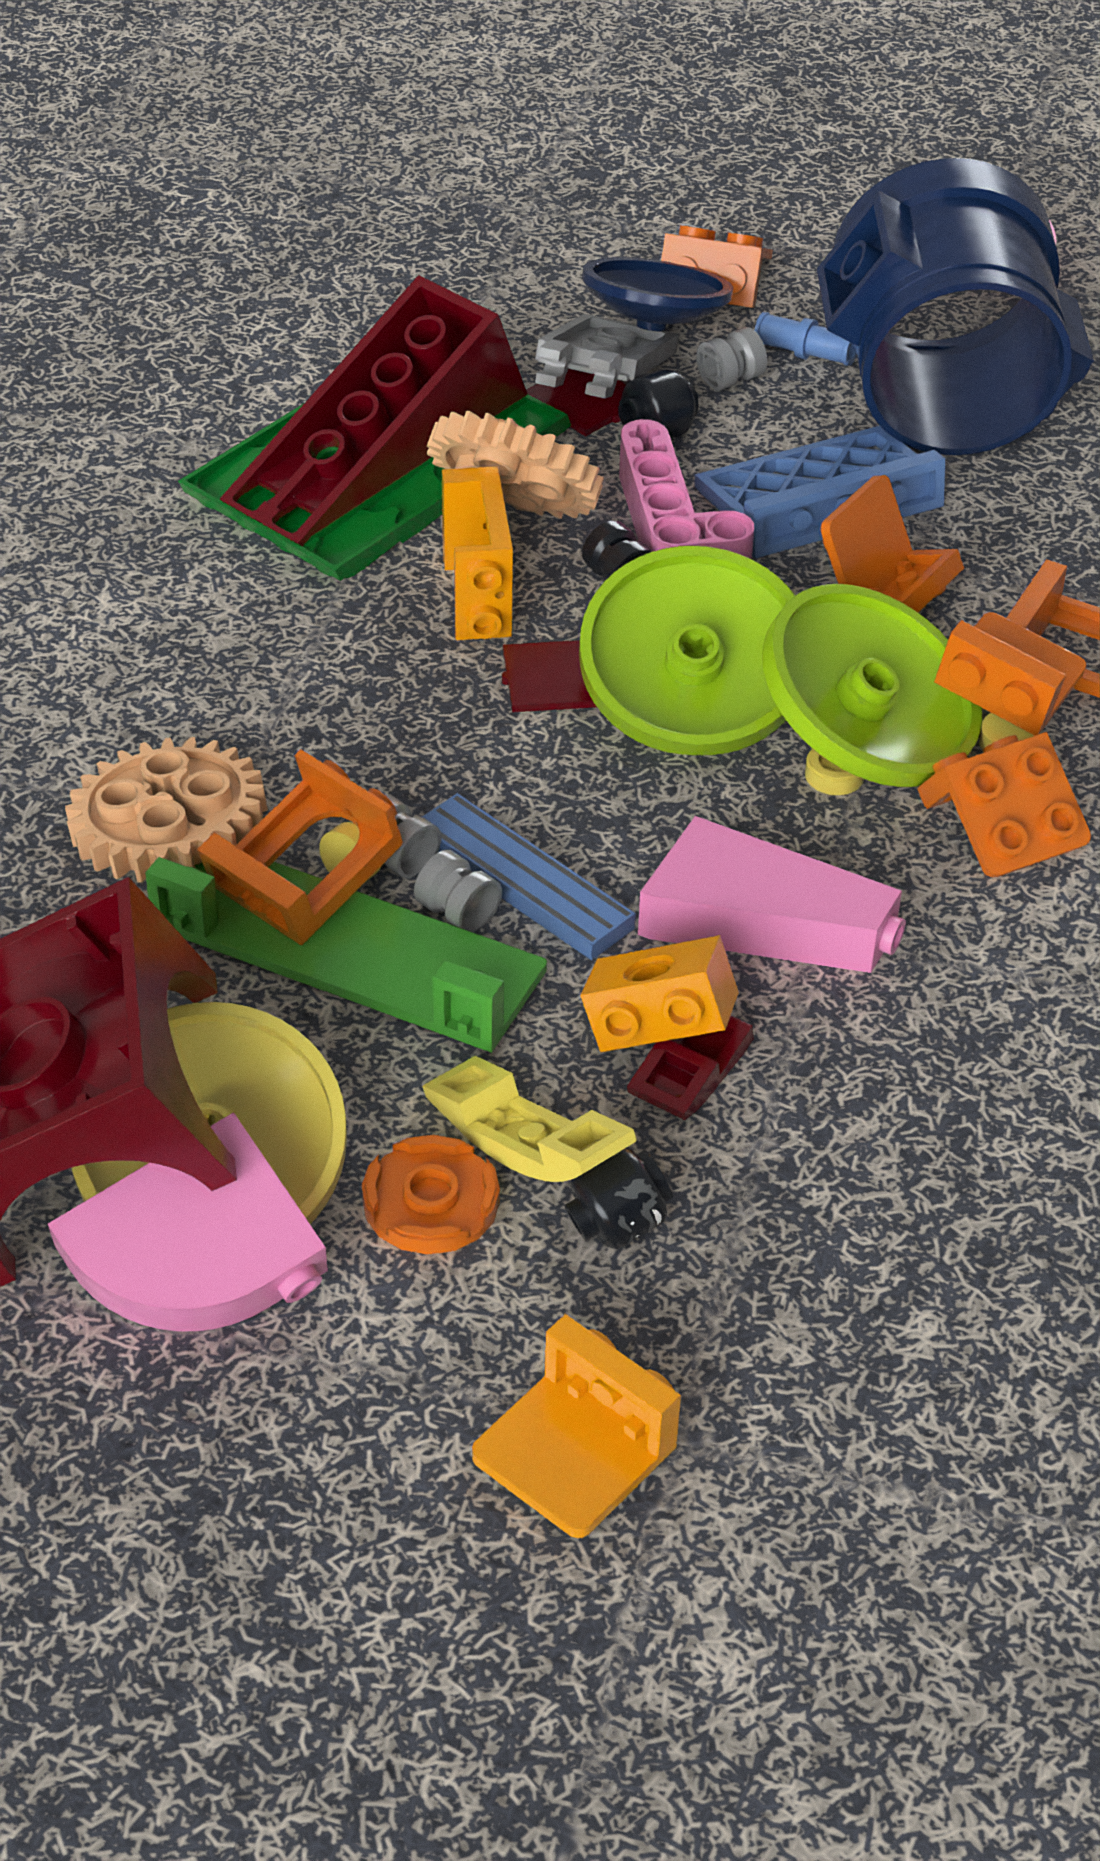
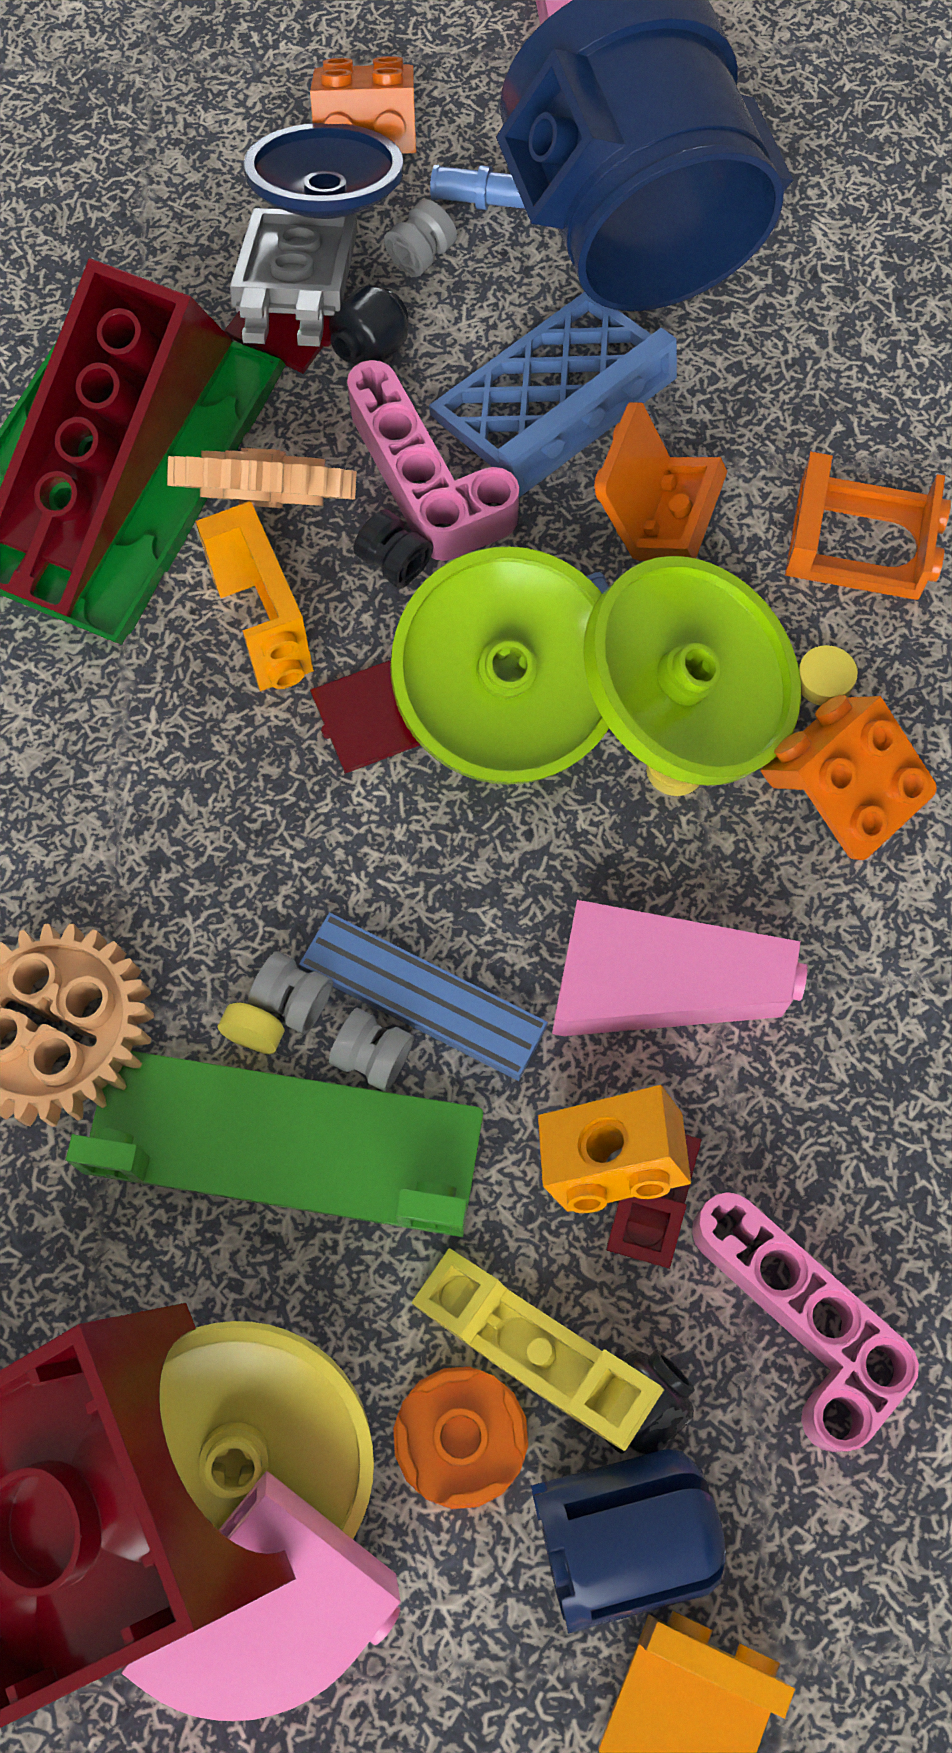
camera: 15 degrees left, 25 degrees up
(323, 793) = (146, 1101): orange panel -> none
(560, 1259) = (630, 1537): none -> dark blue cylinder
(843, 1208) = (793, 1309): none -> bright pink beam
(1009, 671) = (820, 612): orange bracket -> none

